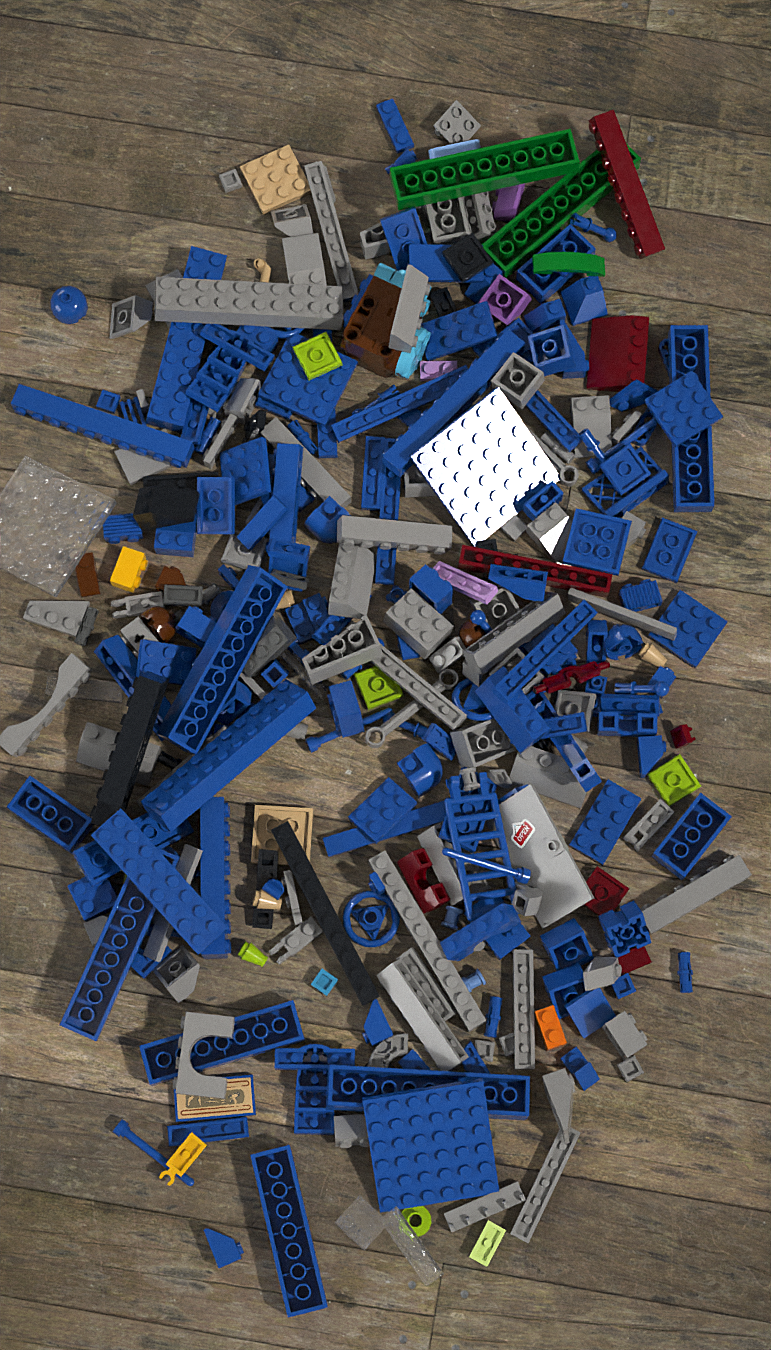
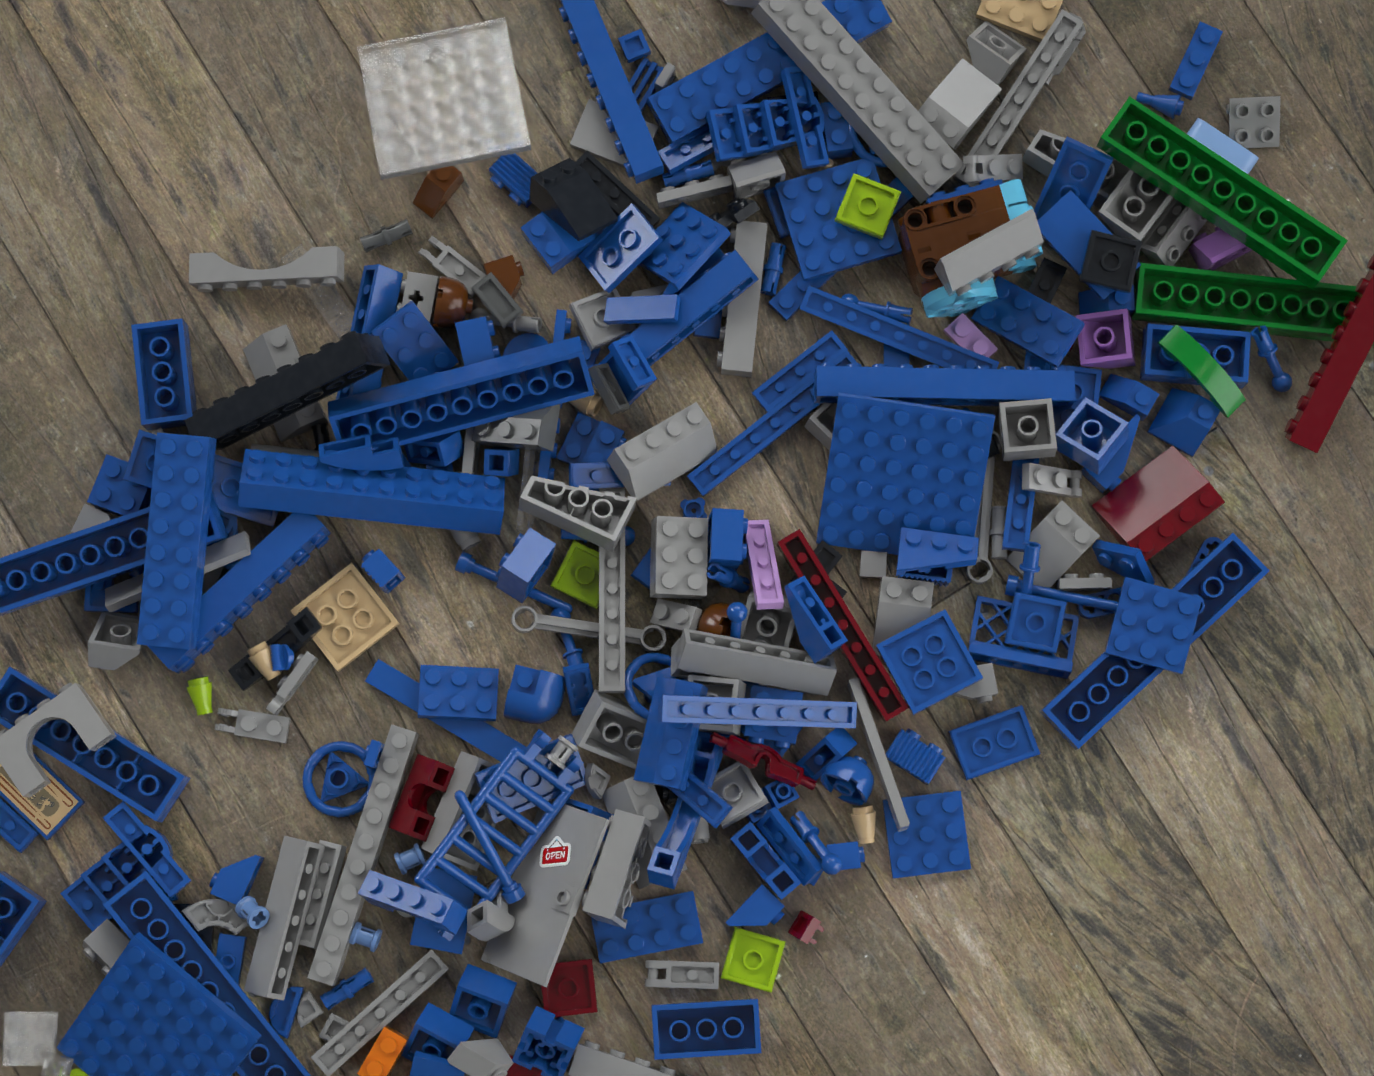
camera: 50 degrees right, 5 degrees up
(57, 615) = (373, 197): light grey wing -> none
(128, 569) = (479, 223): yellow brick -> none
(204, 738) = (362, 453): none -> blue slope
(263, 268) = (916, 71): tan arm -> none
(276, 790) = (382, 570): none -> blue brick
(323, 521) = (707, 376): blue brick -> none
(324, 982) = (235, 790): dark azure plate -> none
(325, 913) = (301, 730): black brick -> none
(356, 274) = (993, 166): none -> light grey plate
(394, 534) = (750, 451): light grey brick -> none
(404, 1030) = (252, 911): none -> medium blue bush
(453, 608) = (728, 577): none -> blue pin
(535, 488) = (930, 549): none -> blue wing
(555, 394) = (1051, 480): none -> light grey plate
(561, 804) = (617, 868): none -> light grey wedge

